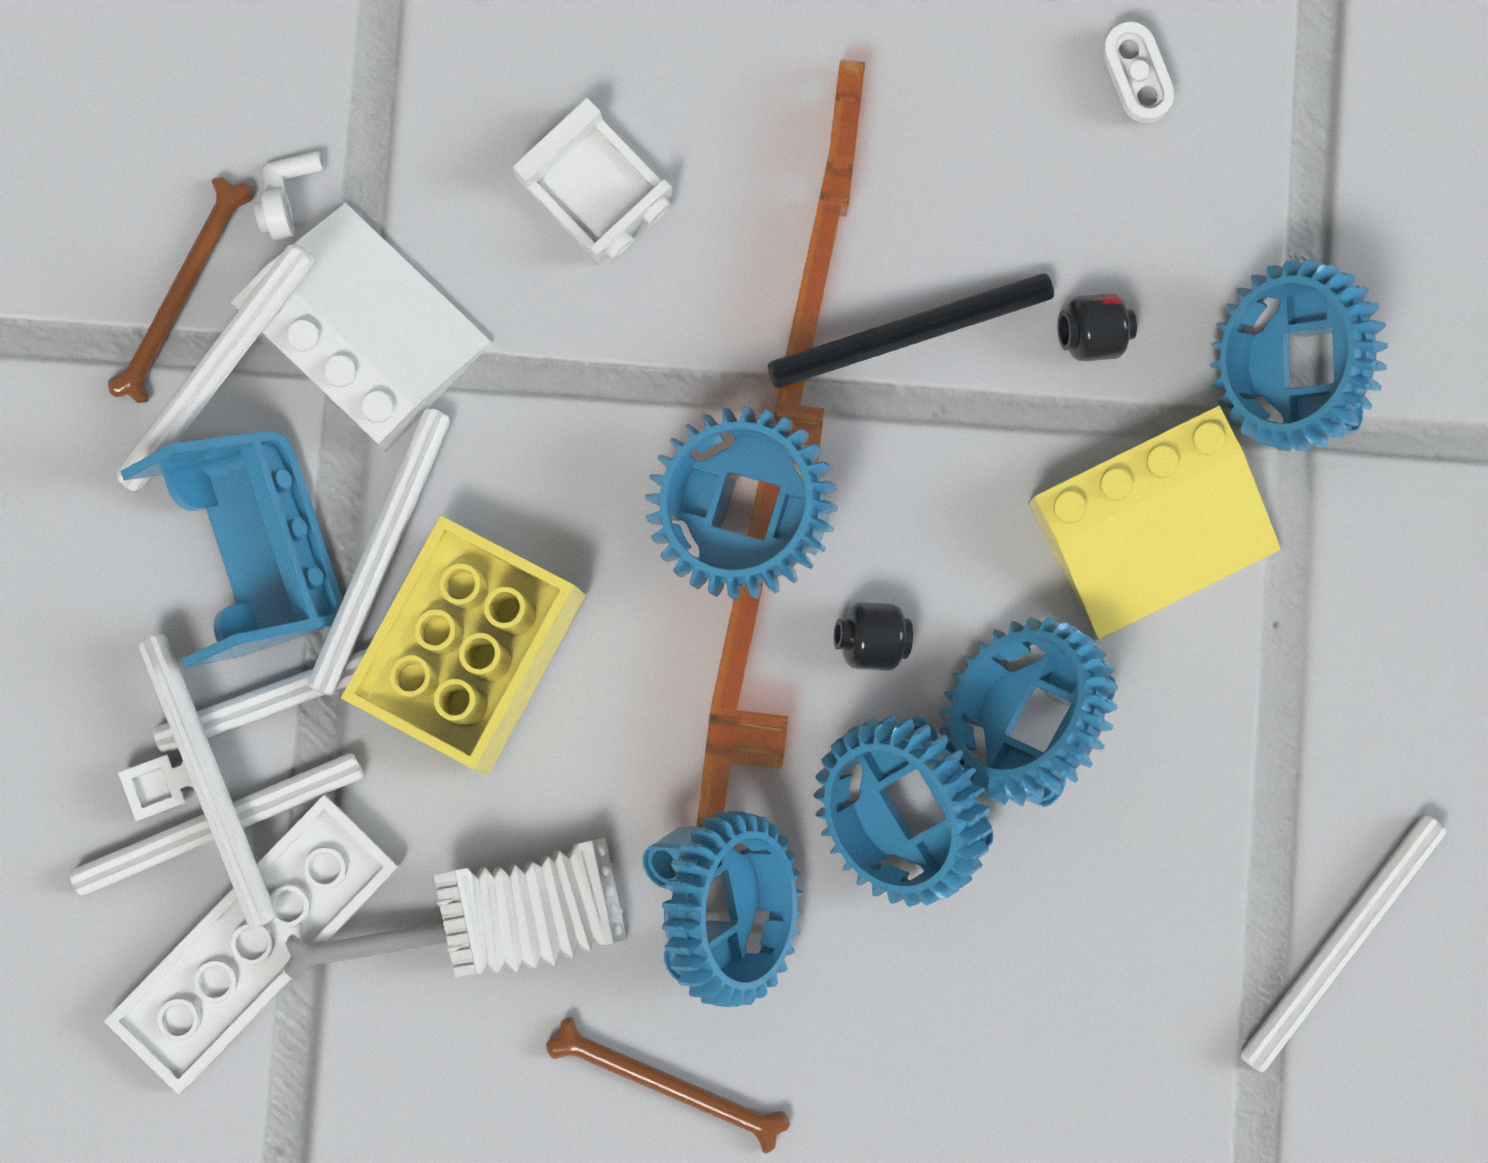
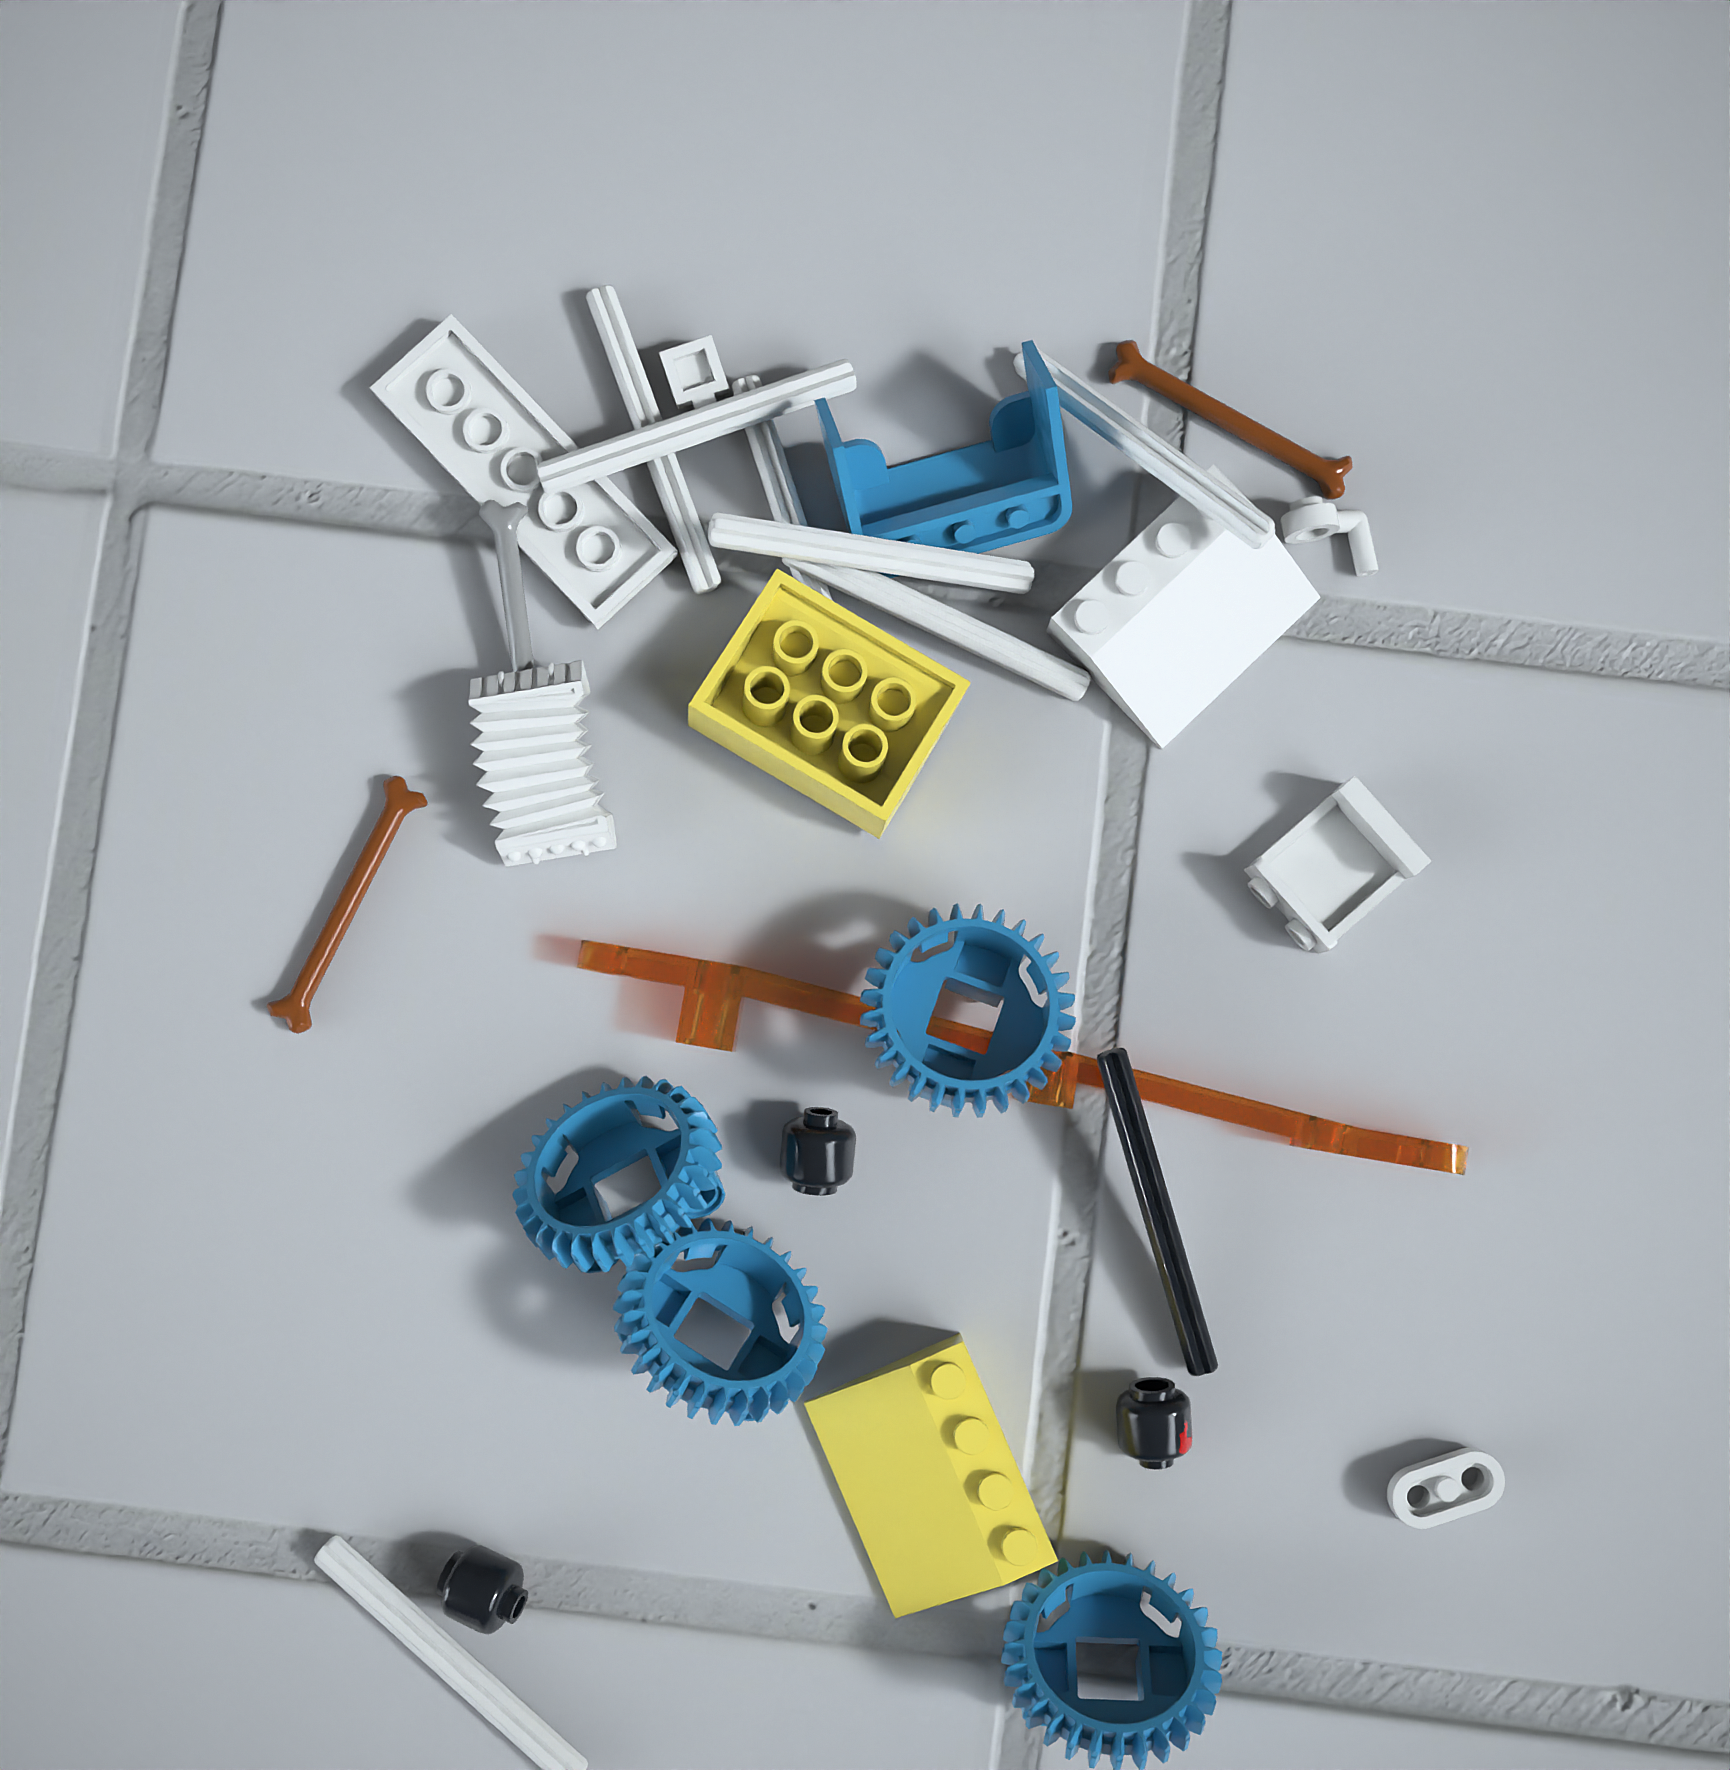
camera: 95 degrees right, 0 degrees up
(324, 612) = (869, 553): none -> white axle
(714, 953) = (476, 956): dark azure piece -> none
(1277, 916) = (482, 1589): none -> black head

